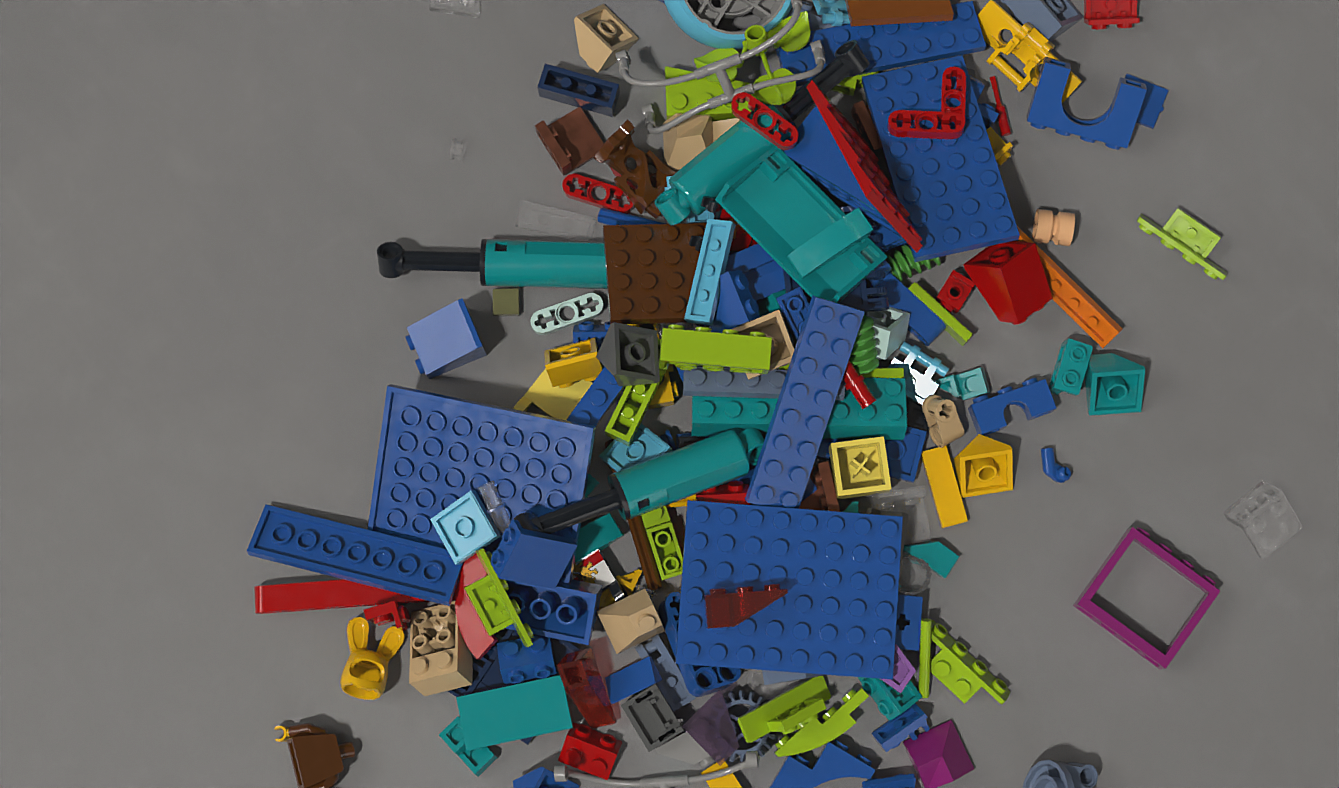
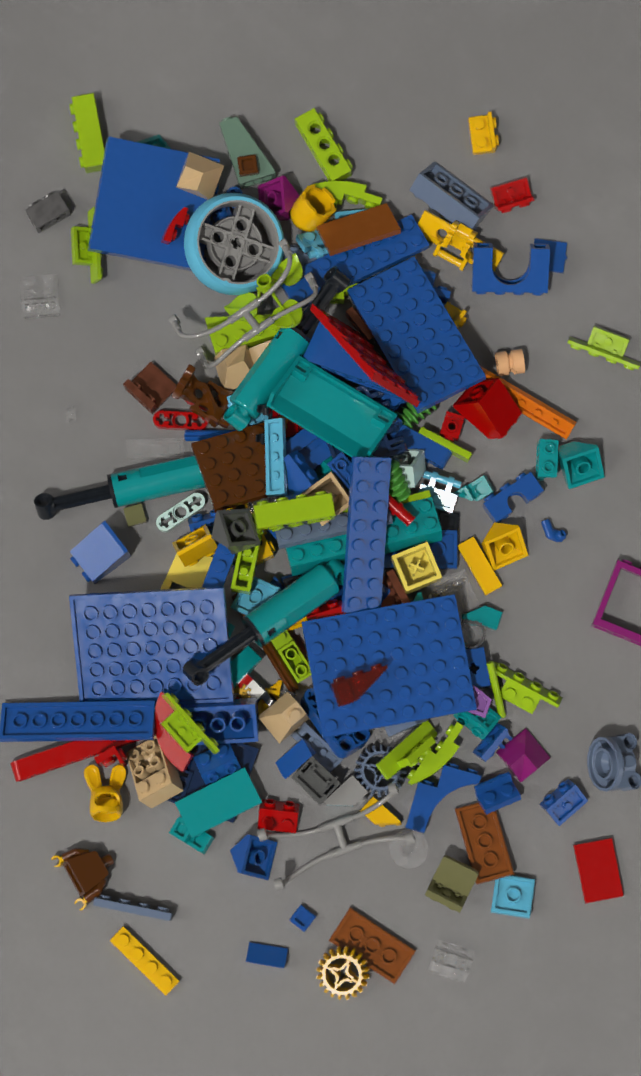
camera: 15 degrees left, 0 degrees up
(465, 527) = (150, 681): medium azure plate -> none
(495, 506) = (168, 661): clear axle -> none
(533, 555) = (203, 688): blue panel -> none
(578, 90) = (147, 350): dark blue brick -> none
(586, 688) = (264, 772): clear red slope -> none
(601, 36) = (154, 307): tan slope -> none
(713, 729) = (361, 777): clear purple wing -> none
(745, 115) = (301, 341): red beam -> none
(830, 243) = (355, 415): teal slope -> none
(942, 420) = (466, 519): tan piece -> none
(947, 113) = (413, 304): red beam -> none
(1002, 117) = (451, 287): red piece -> none

